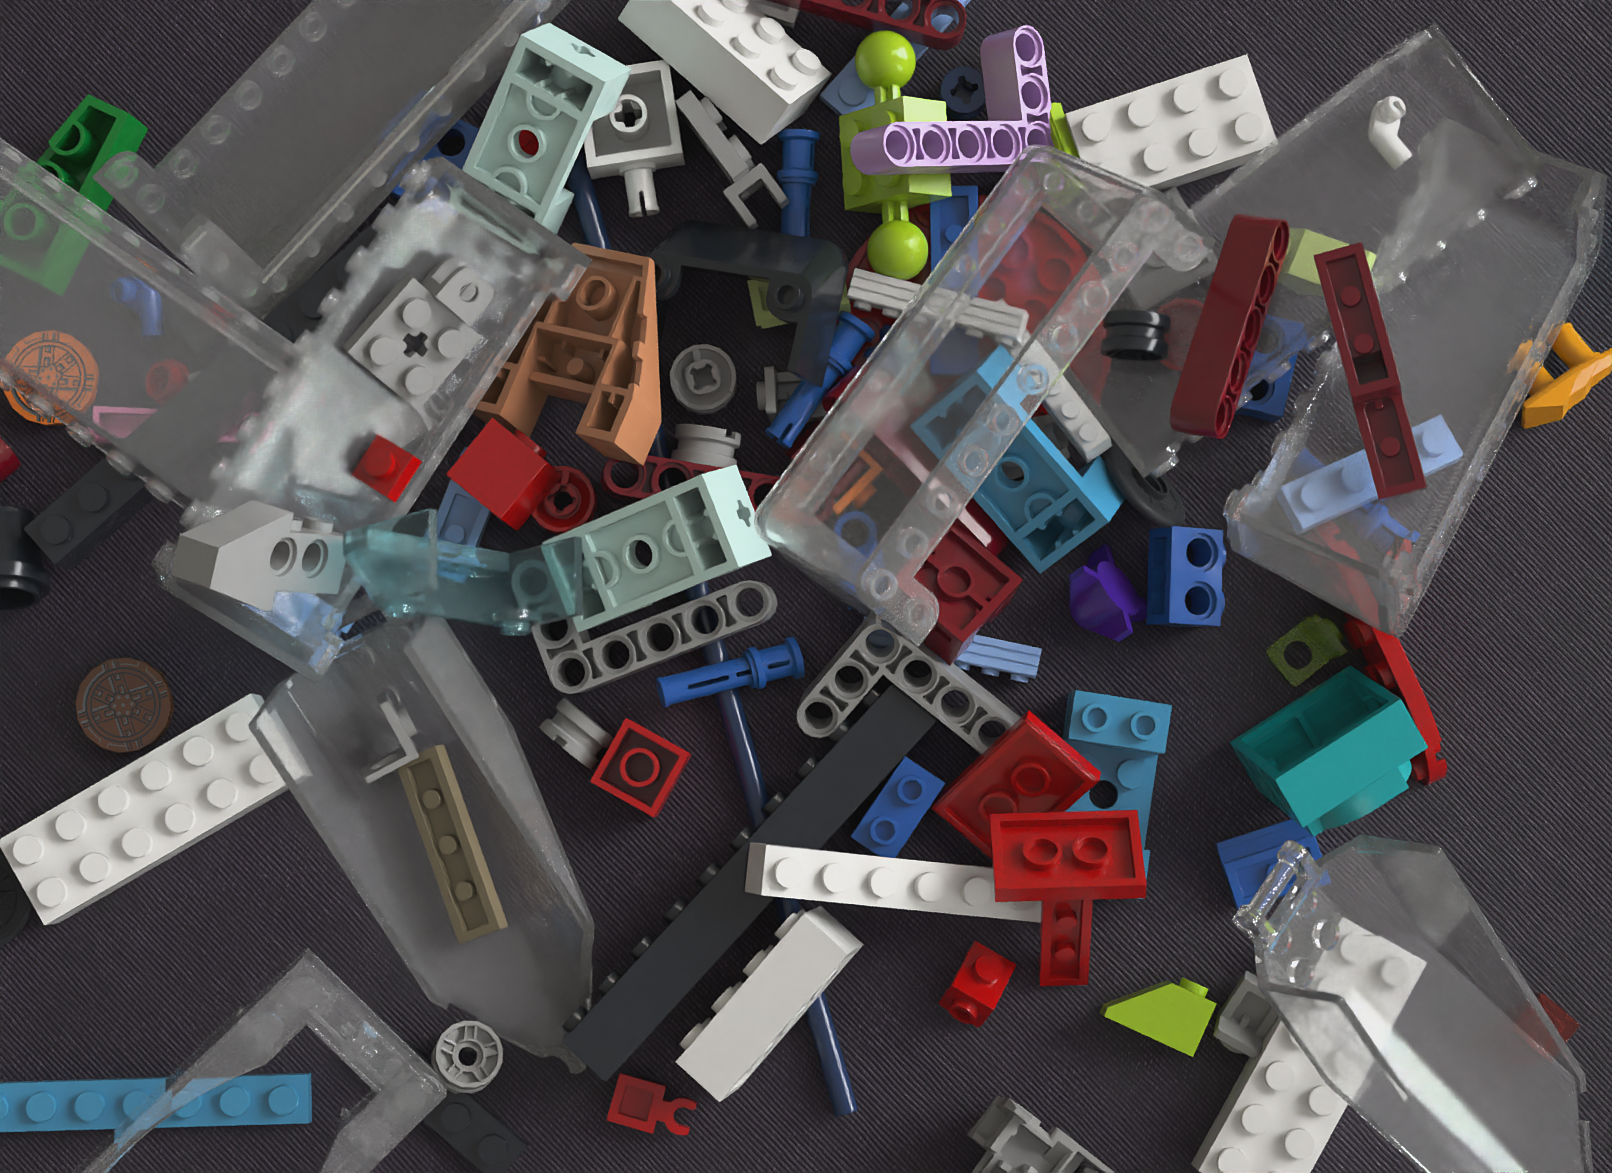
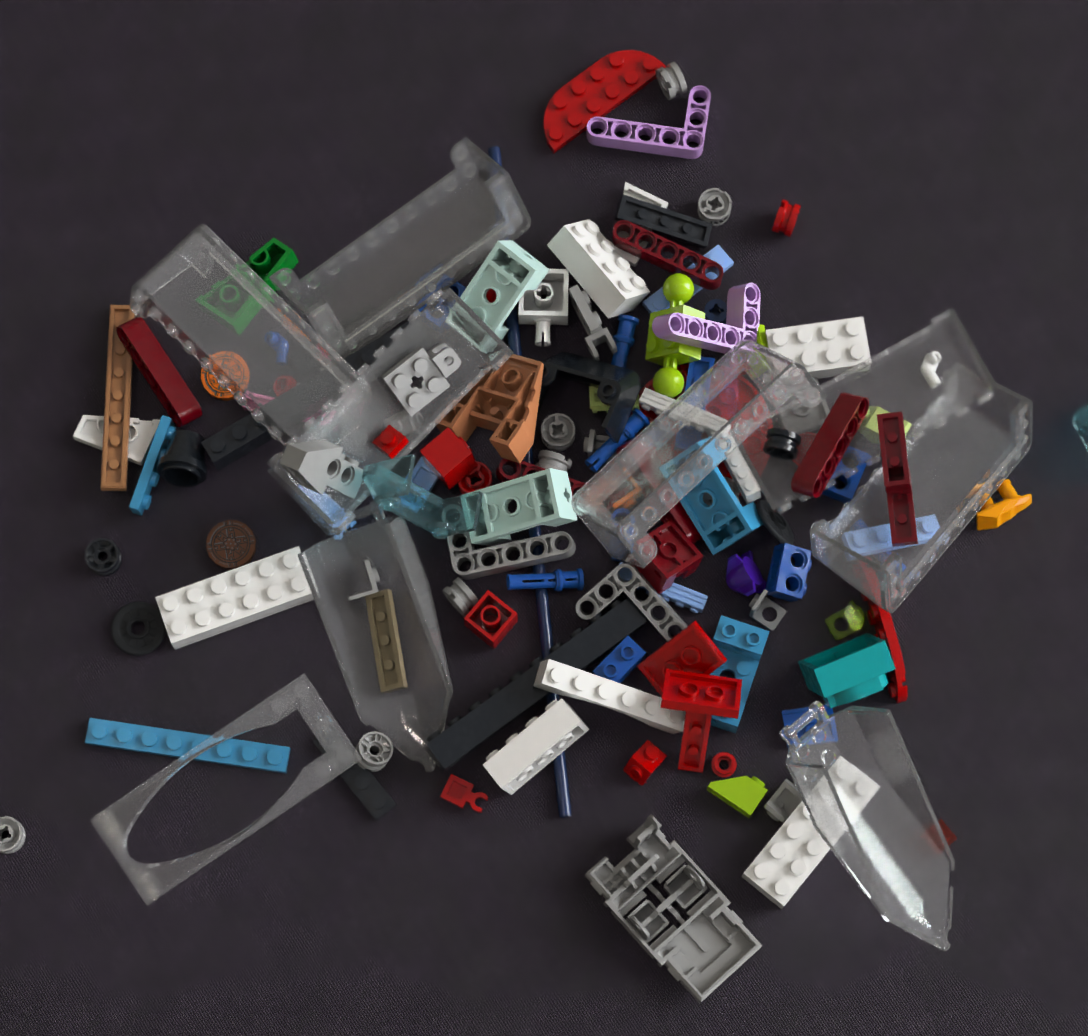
camera: 10 degrees right, 10 degrees down
(1135, 973) = (723, 756): none -> red plate
(1137, 649) = (760, 603): none -> light grey bracket

